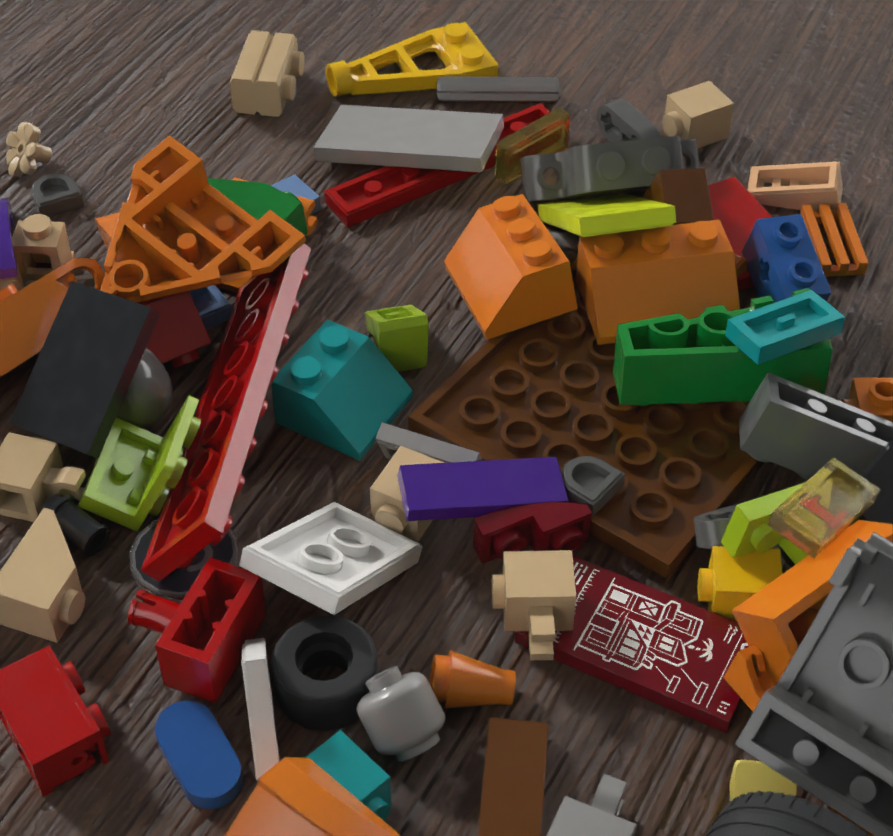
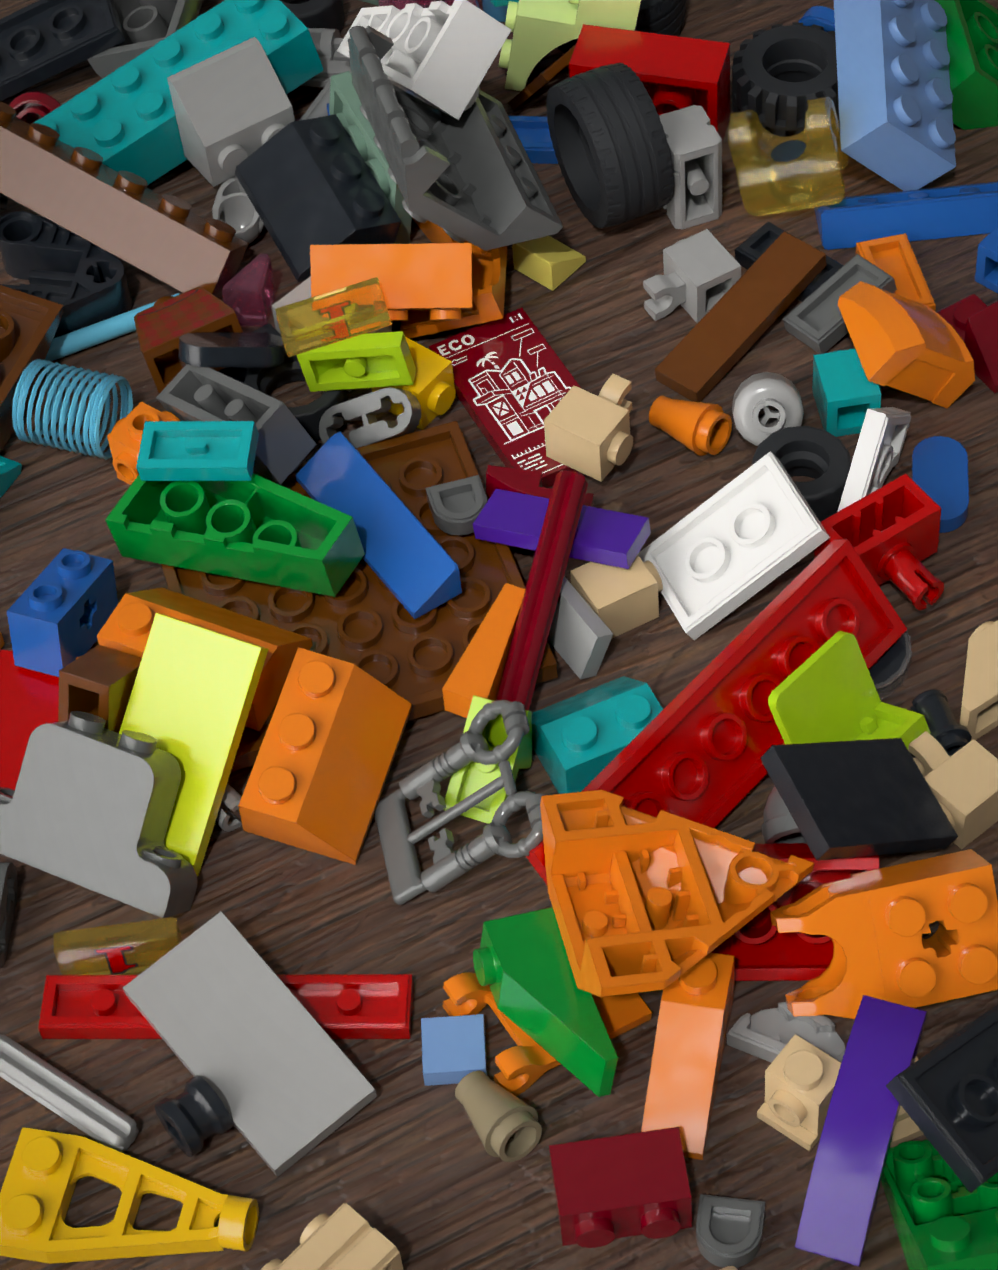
camera: 140 degrees left, 5 degrees up
(107, 171) = (621, 1187): none -> dark red brick
(227, 166) = (501, 1119): none -> dark tan cone
(414, 89) = (194, 1116): none -> black wheel
(418, 289) = (393, 821): none -> dark grey piece
(447, 420) = (543, 588): none -> dark red axle
(452, 372) = (485, 657): none -> orange piece
(632, 435) = (390, 535): none -> blue slope

